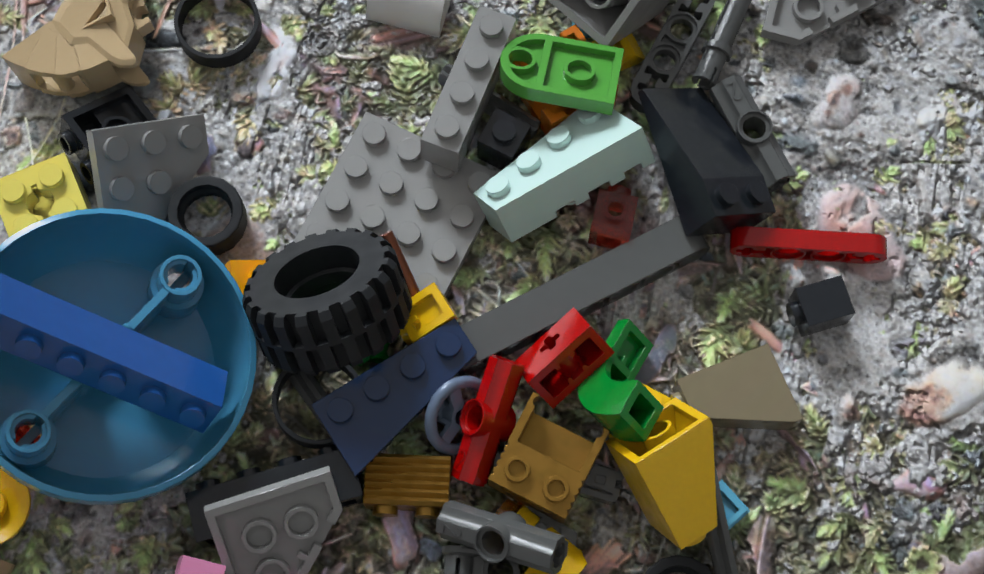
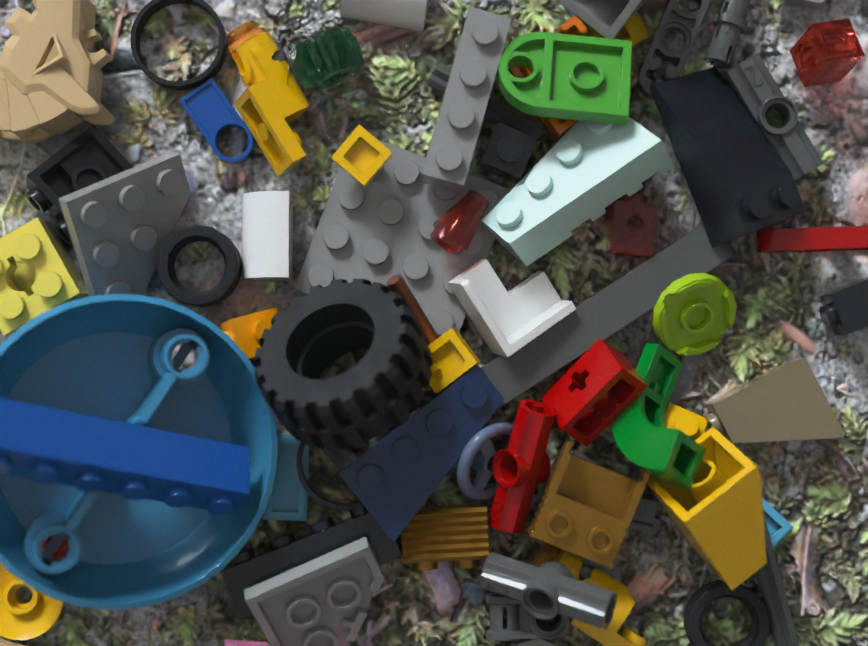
camera: 10 degrees left, 15 degrees up
(241, 89) = (213, 116): none -> blue piece
(258, 430) = (288, 495): none -> medium azure tile
(275, 195) = (267, 235): none -> white brick
(293, 74) = (272, 95): none -> yellow plate
(347, 45) = (326, 58): none -> clear green gear
(368, 125) = (362, 155): none -> yellow tile
(451, 195) = (458, 225): none -> clear red cone
(485, 284) = (512, 317): none -> white panel
(665, 298) = (694, 314): none -> lime tile
(802, 79) = (826, 52): none -> clear red brick

